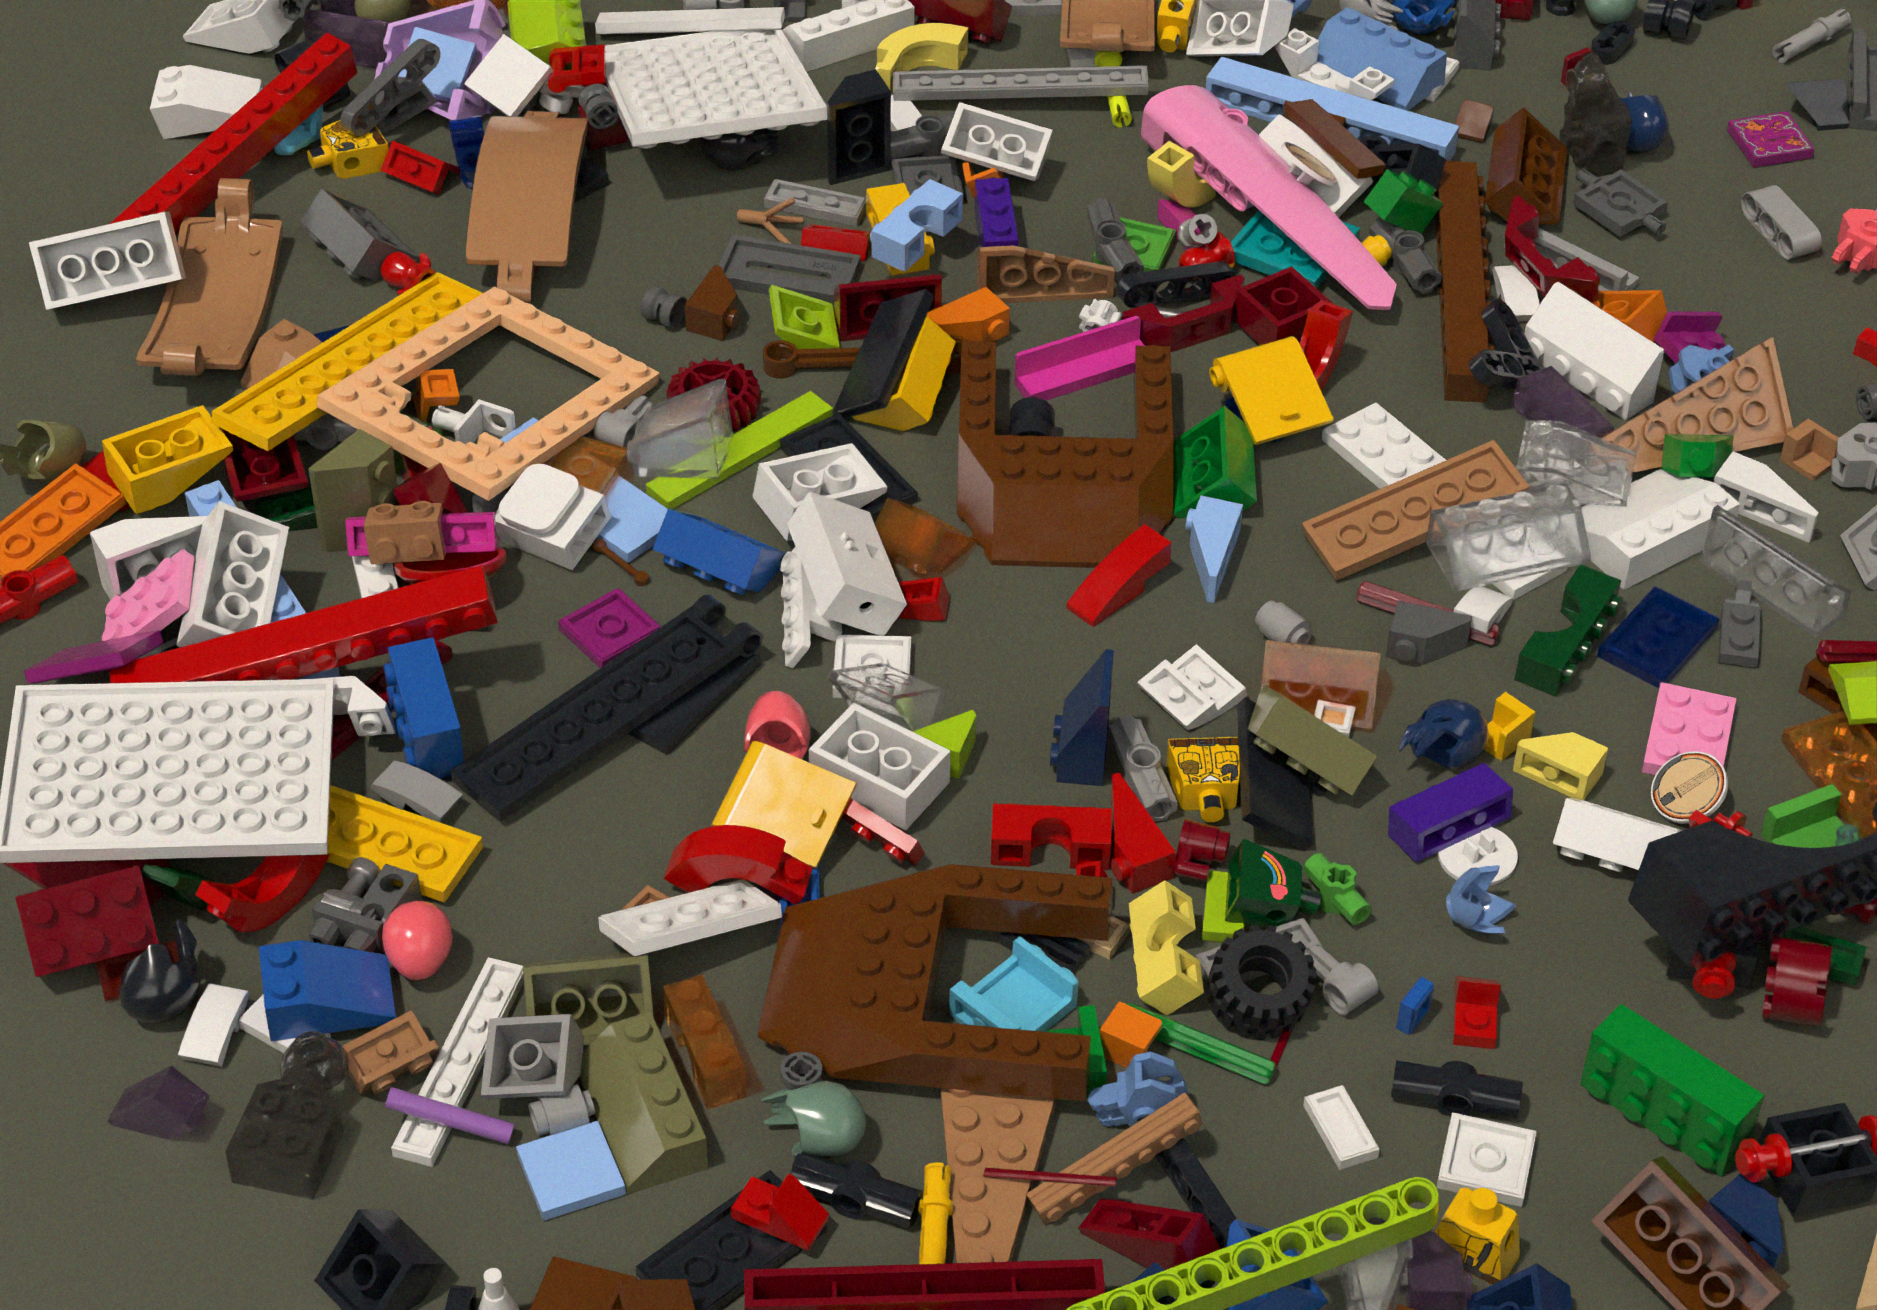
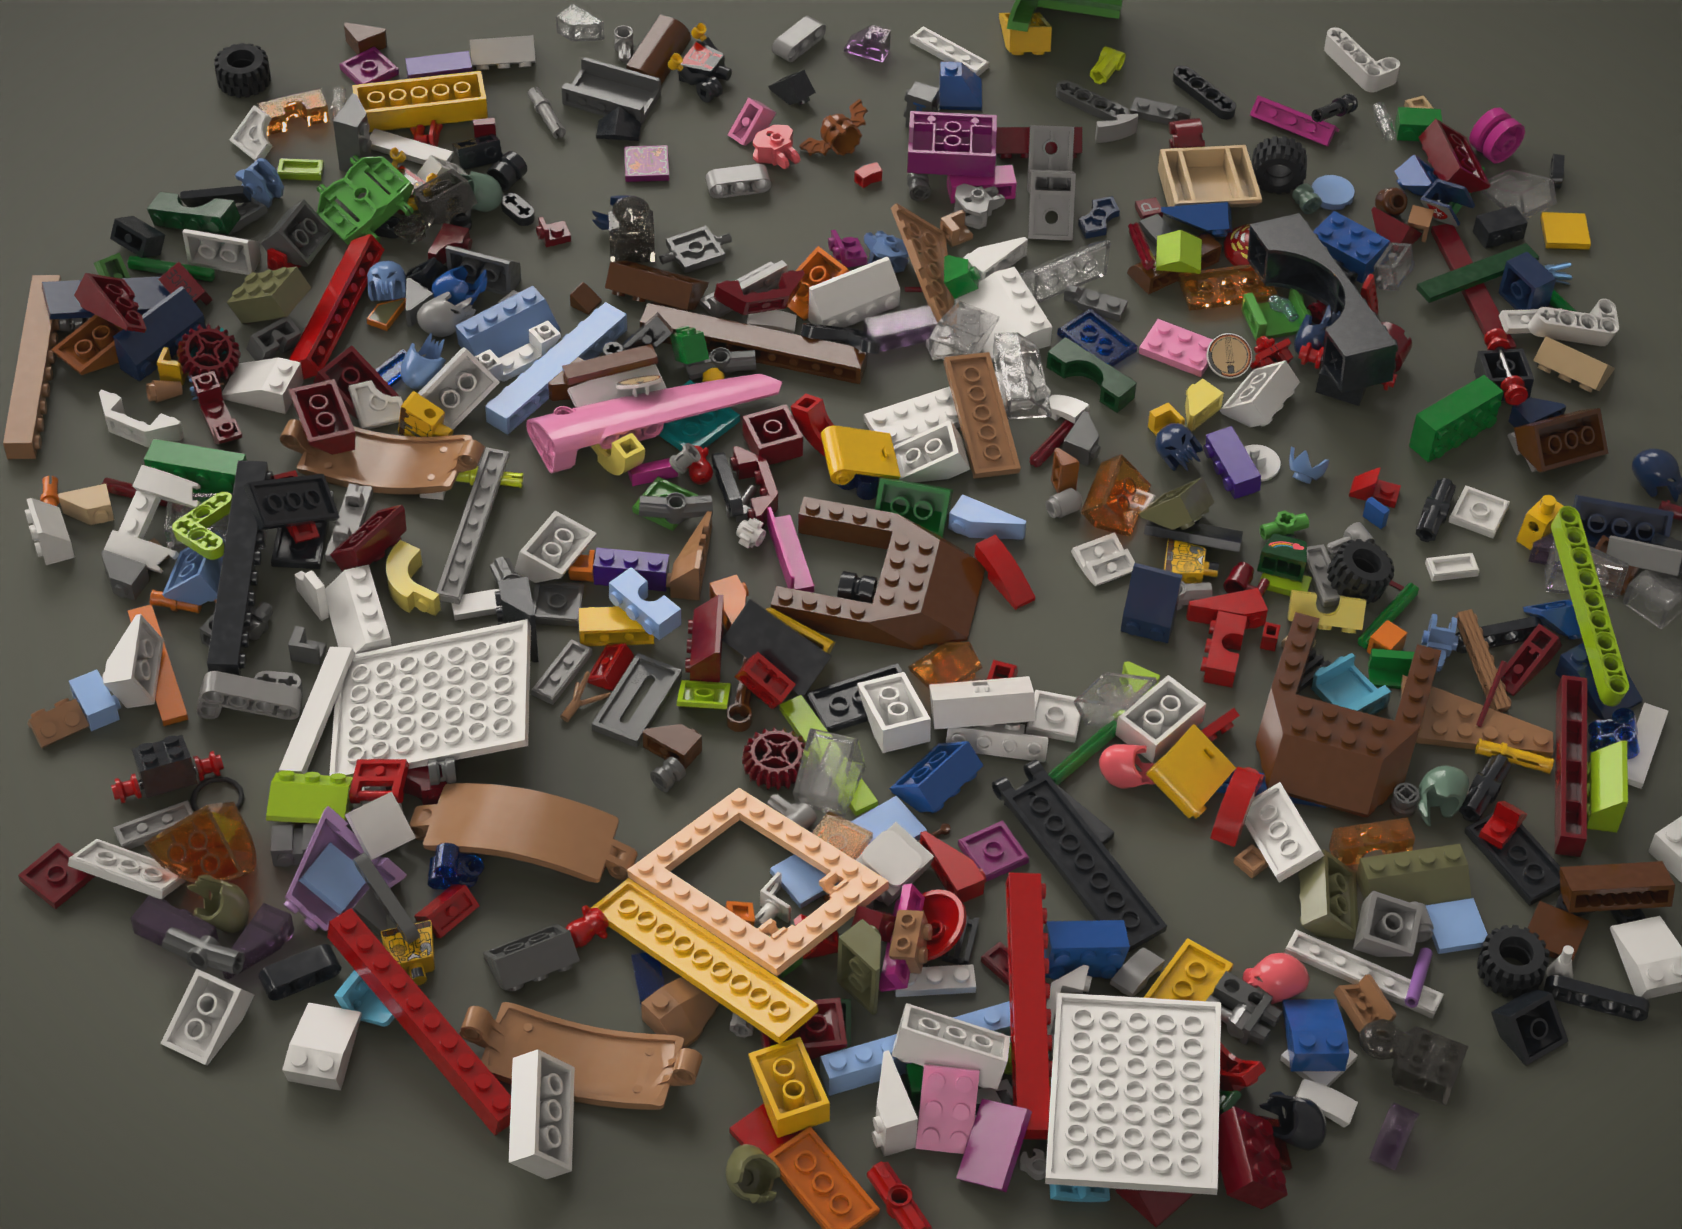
camera: 80 degrees left, 5 degrees up
(490, 1208) = (1515, 944): none -> black tyre
(562, 583) = (954, 869): none -> red slope
(812, 703) = (1083, 753): none -> green axle
(828, 355) = (765, 680): none -> red brick
(1318, 475) = (932, 455): none -> white slope
(1329, 605) = (1064, 471): none -> dark orange slope

